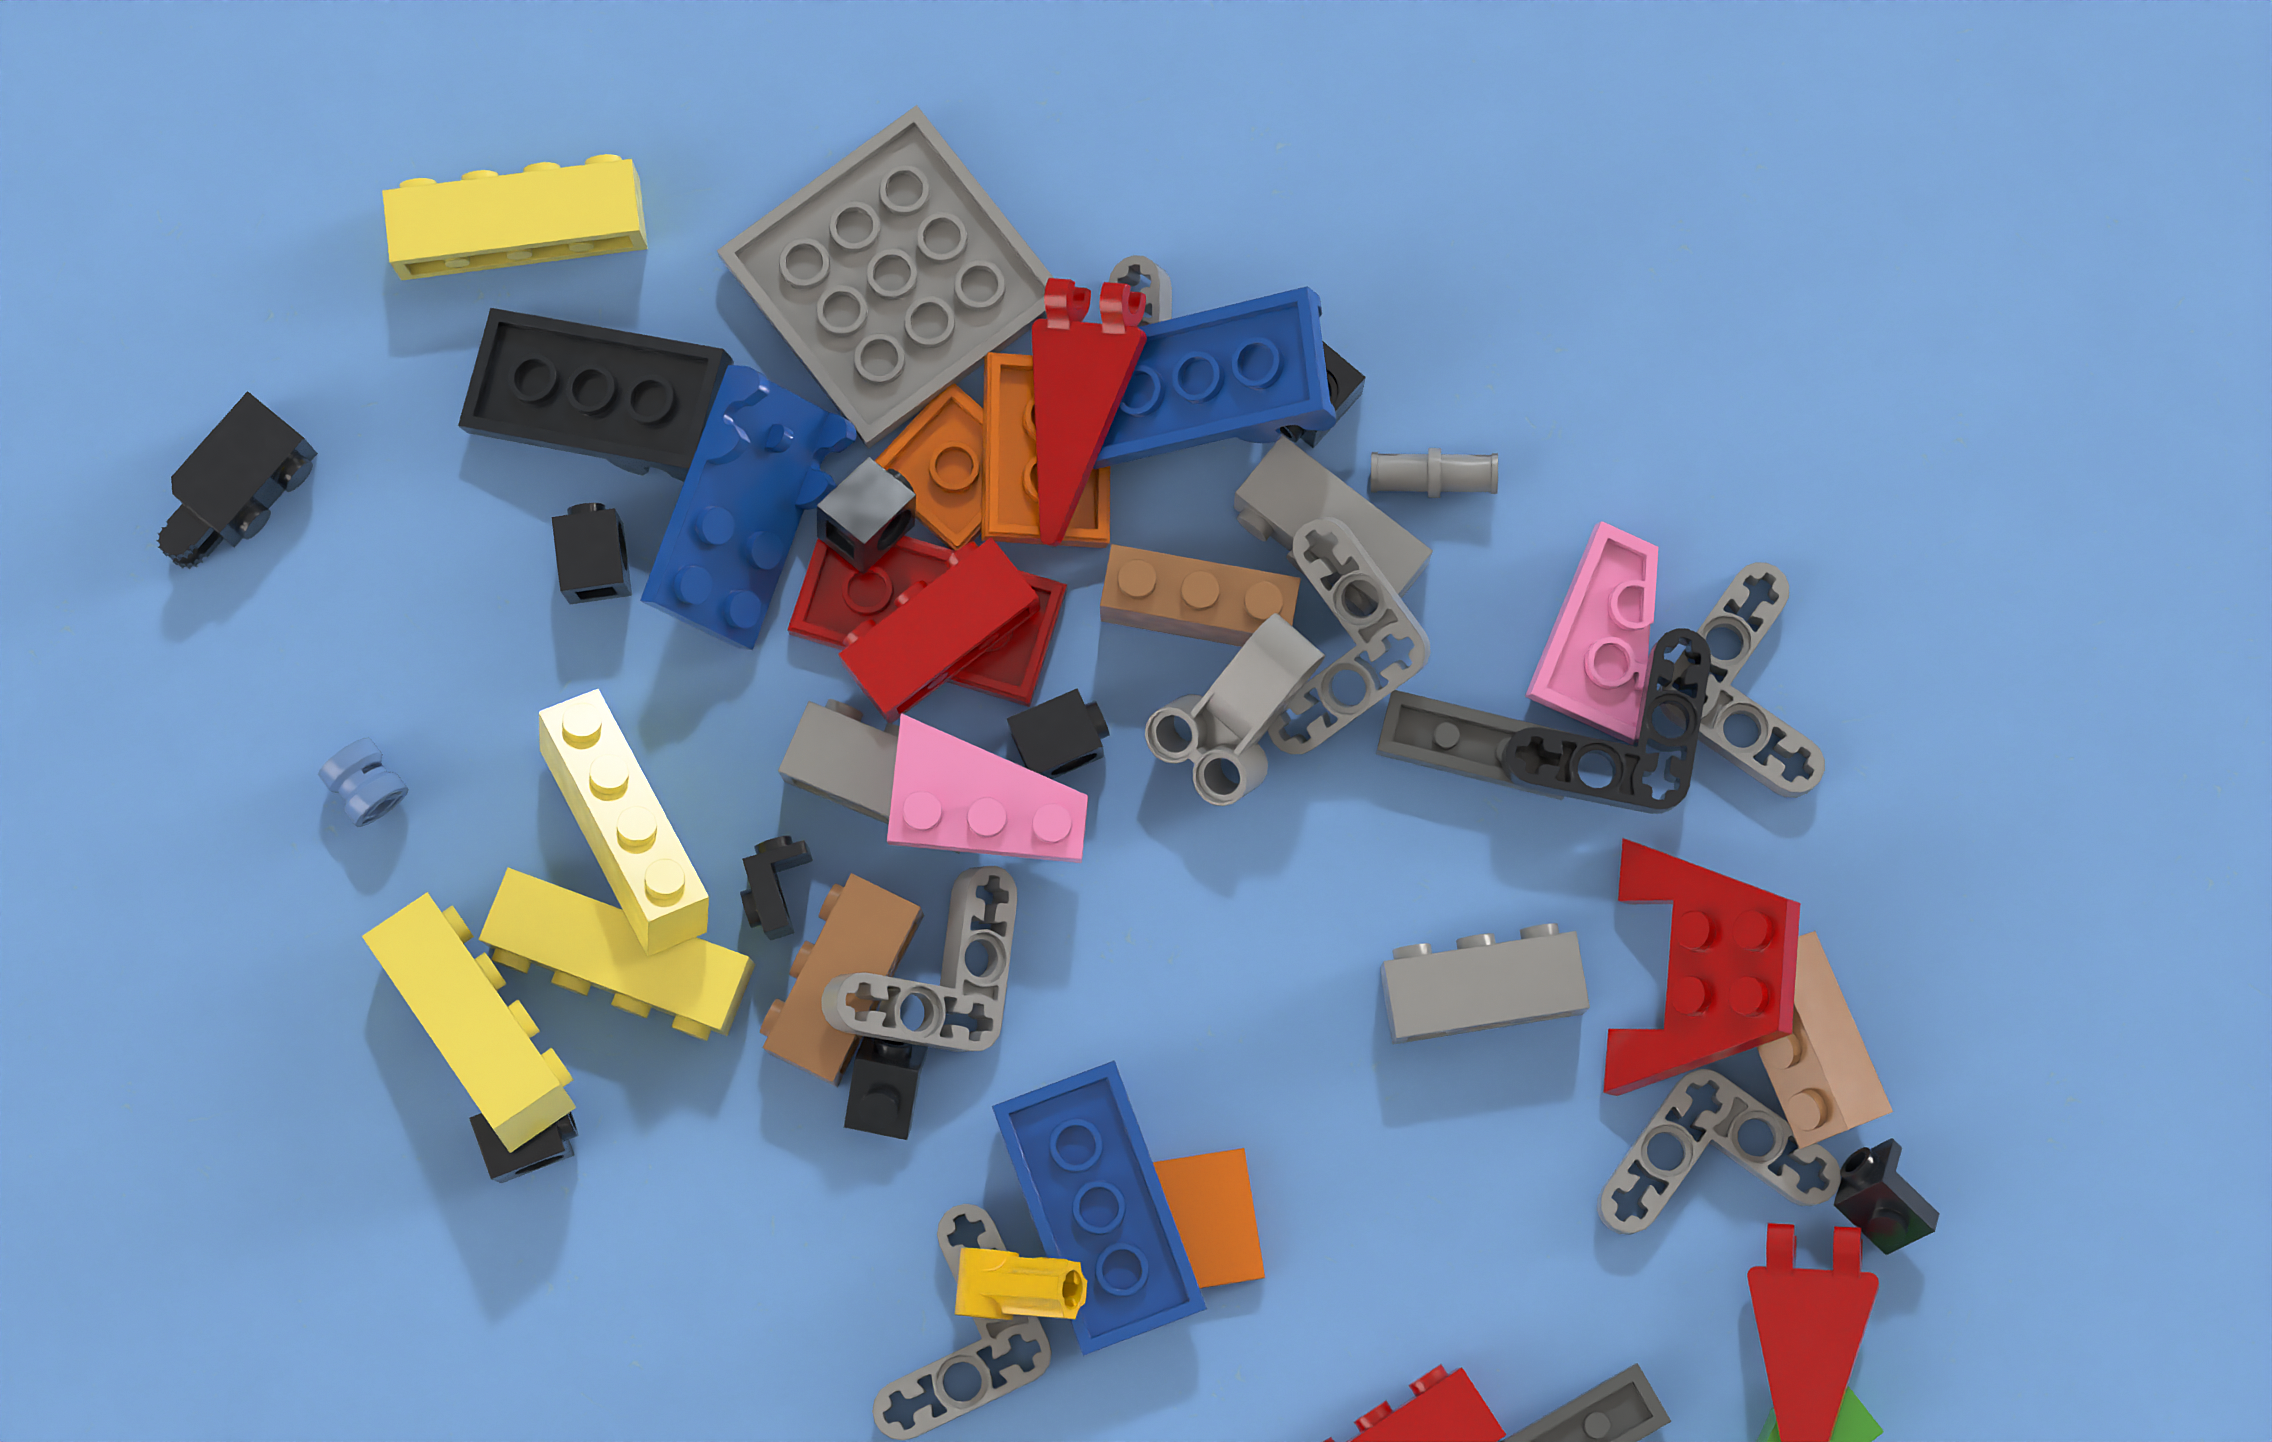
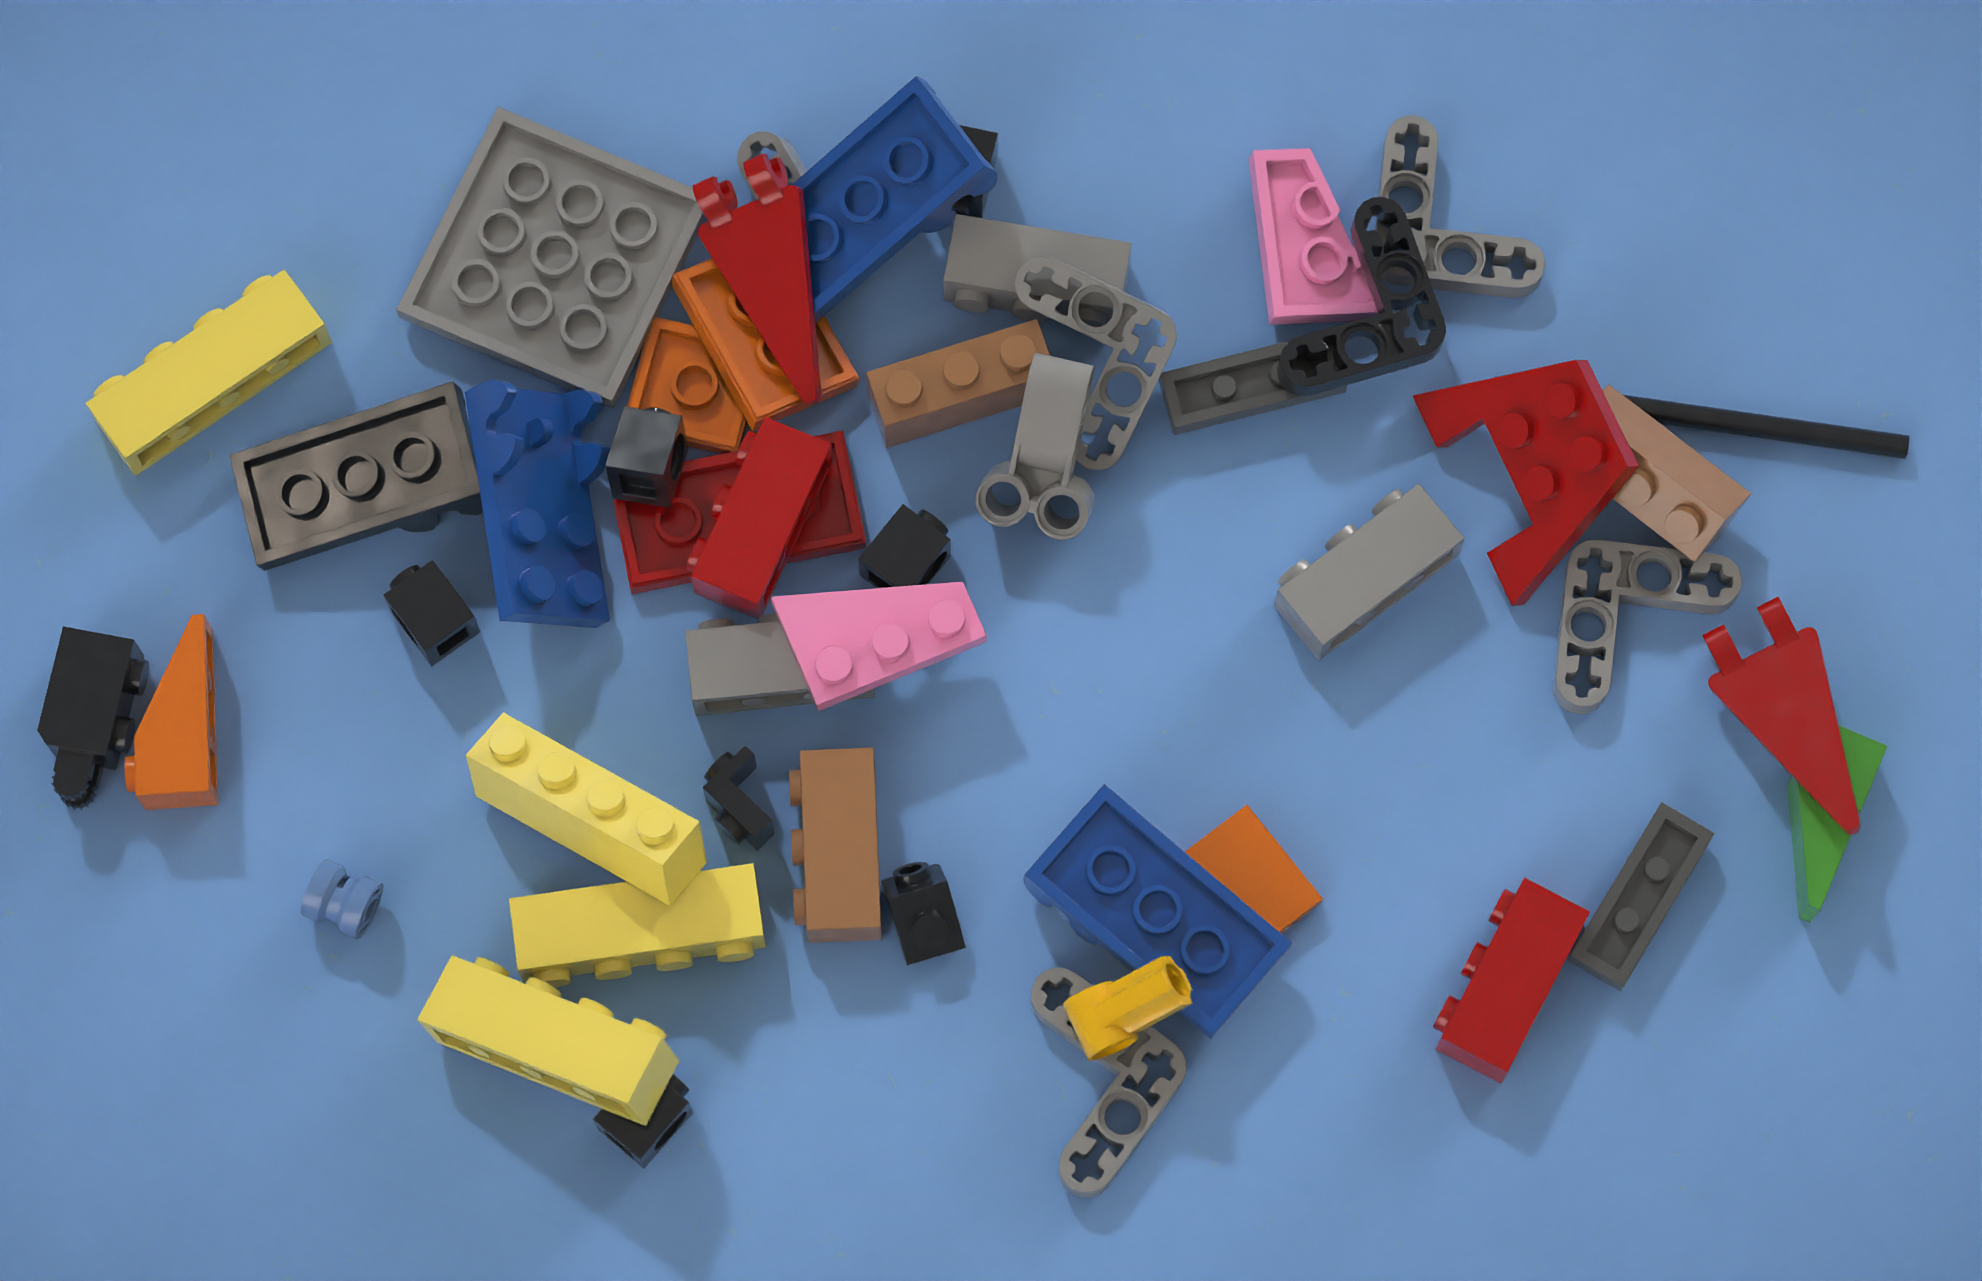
camera: 30 degrees left, 5 degrees down
(304, 543) = (177, 736): none -> orange slope
(958, 989) = (938, 800): light grey beam -> none
(1434, 472) = (1094, 184): light grey pin -> none
(1881, 1200) = (1782, 567): black bracket -> none
(1946, 1048) = (1774, 427): none -> black piece

